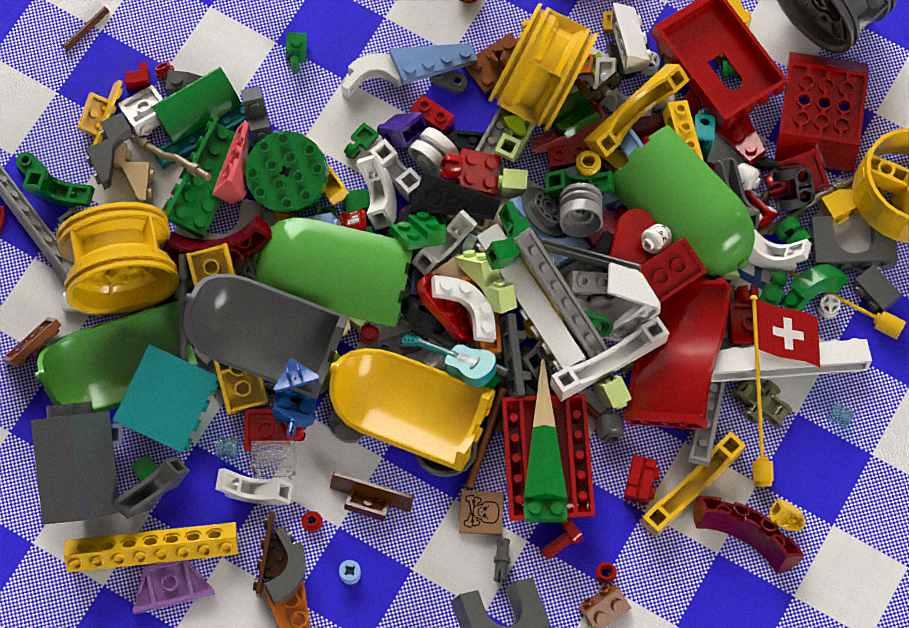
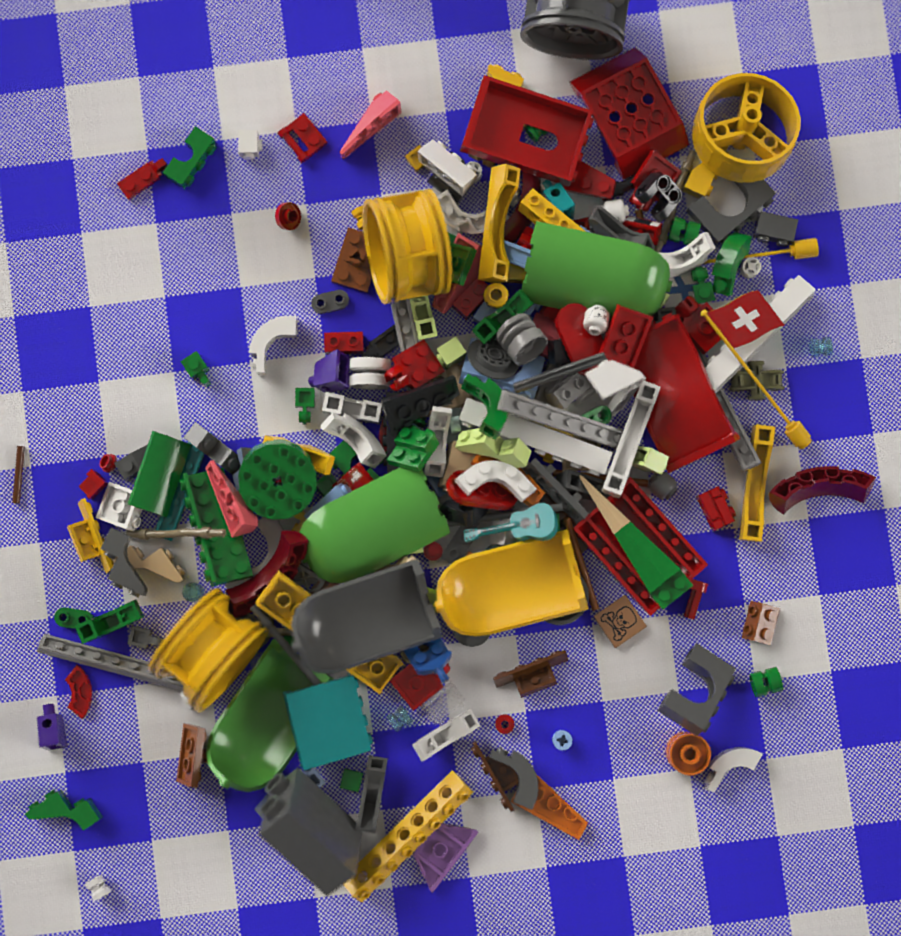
camera: 40 degrees left, 15 degrees up
(295, 375) = (414, 635): piece -> none
(428, 61) = (306, 302): medium blue wing -> none
(501, 560) = (662, 645): dark grey pin -> none
(515, 124) = (413, 304): lime tile -> none
(598, 94) = (458, 233): dark brown bracket -> none
(606, 566) = (748, 596): red plate -> none
(787, 516) = (839, 454): yellow rock -> none

